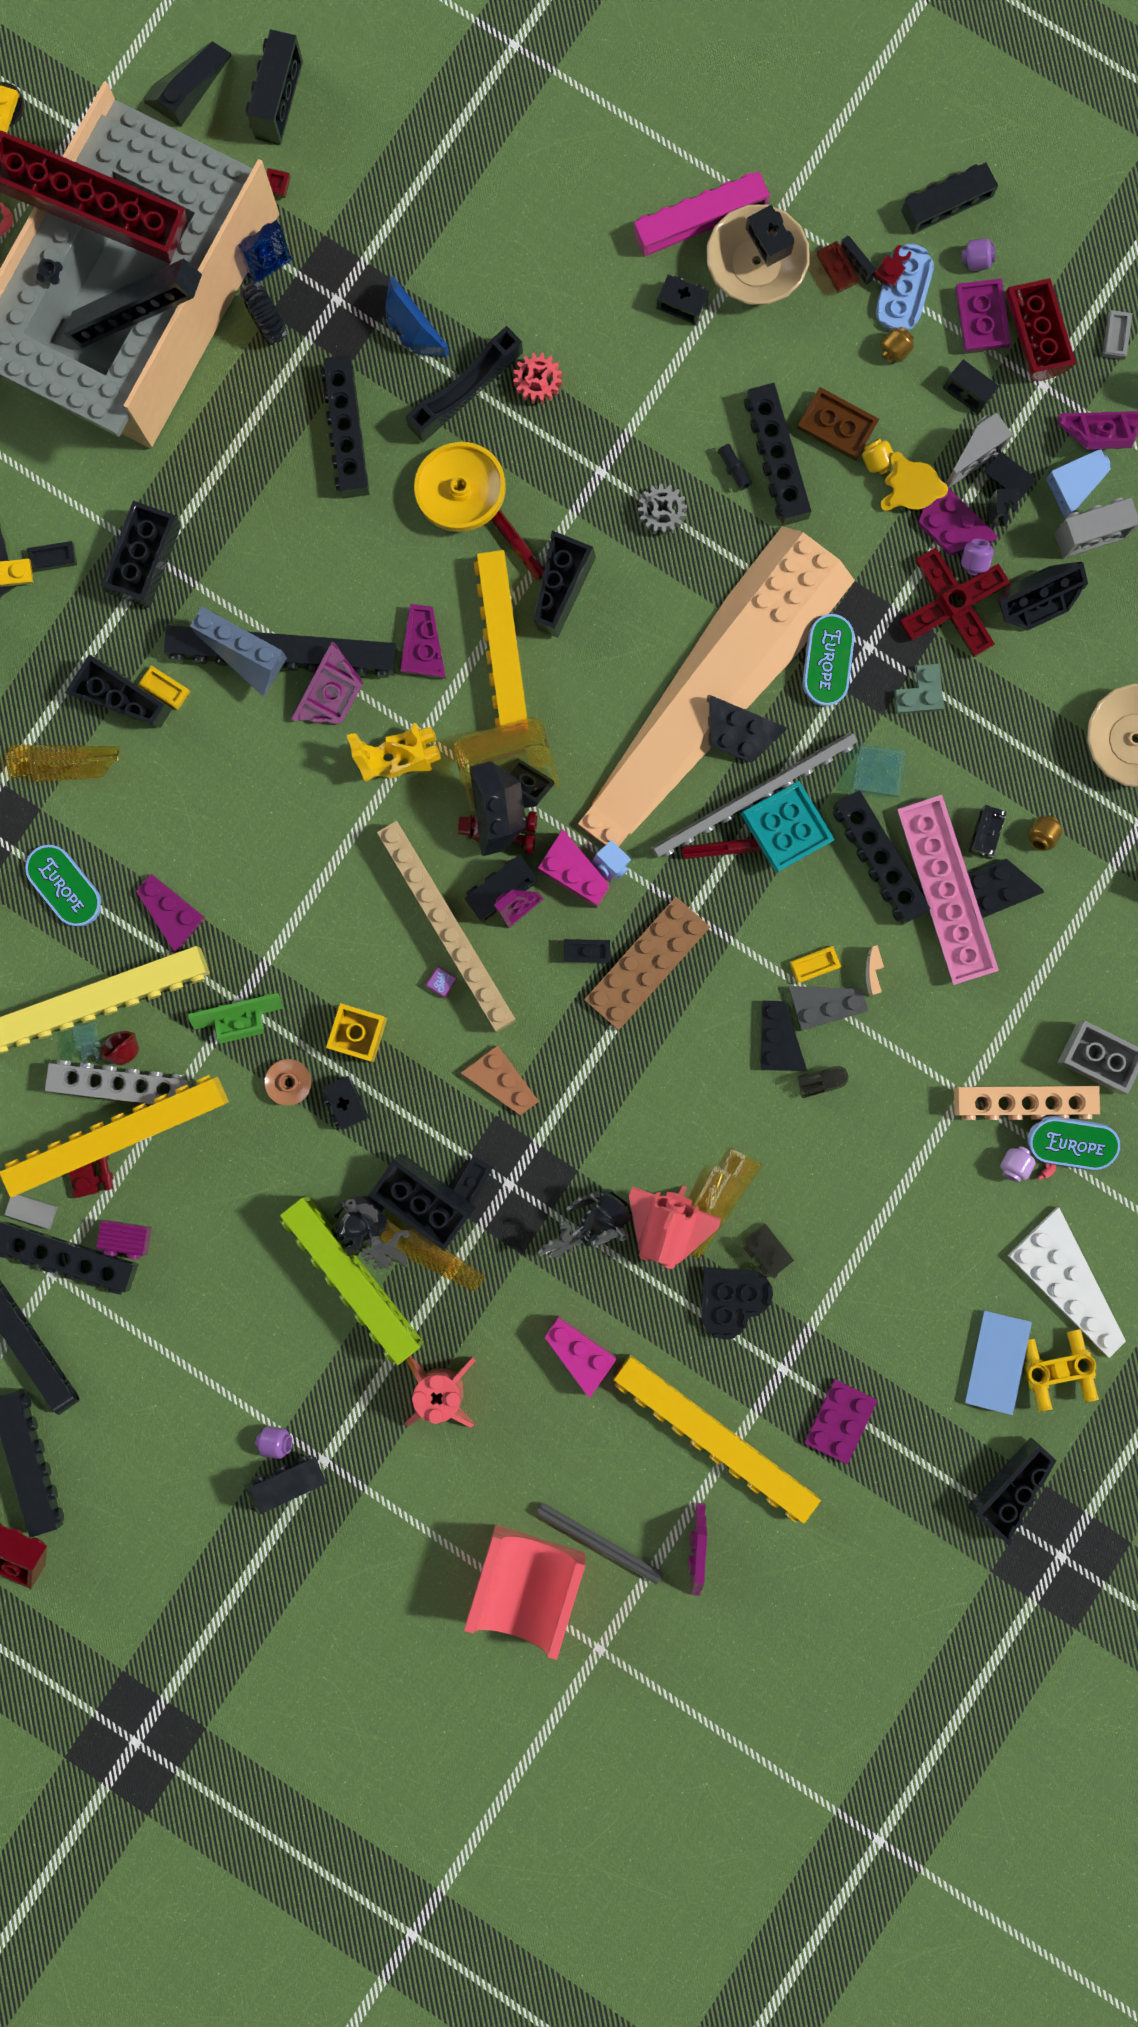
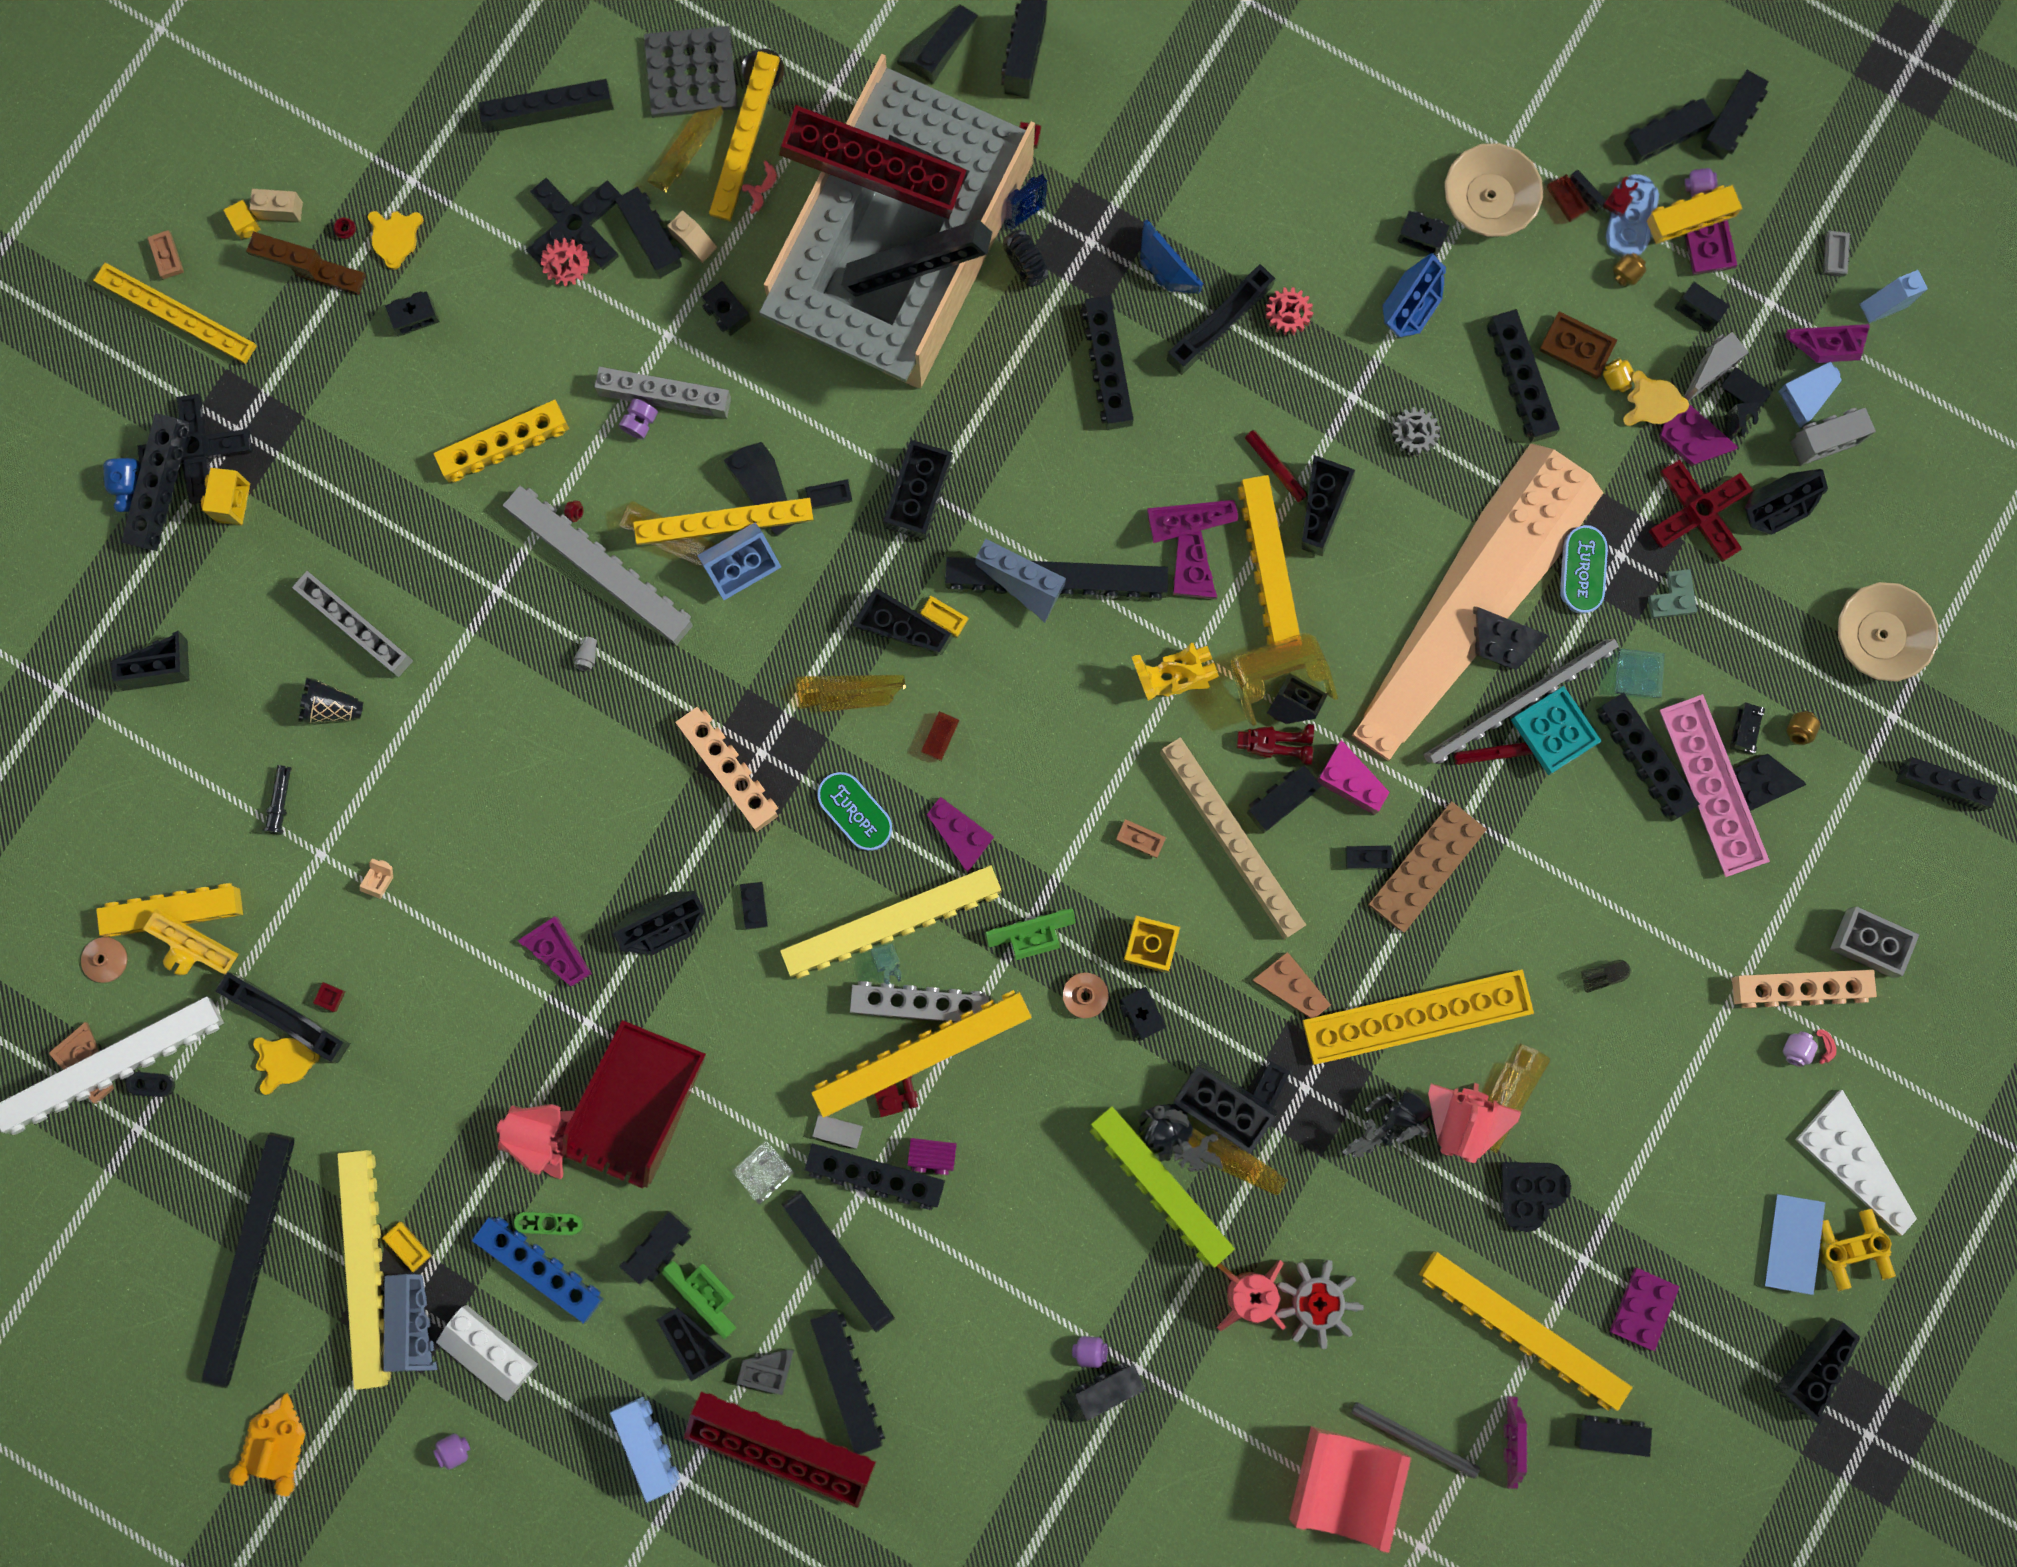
camera: 10 degrees left, 5 degrees down
(43, 268) = (834, 224): black plate -> none
(120, 1048) = (919, 967): dark red helmet -> none
(153, 811) = (940, 736): none -> clear red plate
(330, 690) = (1107, 614): magenta wing -> none
(353, 924) = (1140, 838): none -> nougat plate
(414, 594) = (1189, 518): none -> magenta wing
(441, 982) = (1228, 892): tile -> none
(460, 486) = (1222, 416): yellow dish -> none
(496, 1411) = (1328, 1313): none -> light grey gear
(497, 807) = (1278, 720): black wedge -> none
(516, 904) = (1299, 814): magenta wing -> none
(580, 1354) = (1387, 1252): dark pink wedge -> none
(611, 862) = (1389, 769): light blue brick -> none
(627, 1116) = (1417, 1017): none -> yellow plate
(670, 368) = (1415, 297): none -> blue wedge
(698, 214) = (1434, 152): dark pink brick -> none
(734, 467) = (1482, 389): black pin -> none
(768, 1251) = (1562, 1143): clear smoke bracket -> none
(770, 235) = (1505, 172): black brick -> none
(778, 1039) = (1559, 936): black wing -> none
(799, 1547) = (1613, 1435): none -> black brick
(815, 964) = (1589, 862): yellow tile -> none
(824, 1005) = (1602, 901): dark grey wing -> none
(873, 964) = (1647, 858): light nougat slope -> none
(967, 286) = (1694, 214): none -> yellow brick
(977, 556) = (1720, 466): medium lavender head -> none
(1020, 181) = (1735, 114): none -> black brick
(1040, 329) = (1765, 251): dark red brick -> none
(1074, 1143) = (1853, 1026): green tile -> none

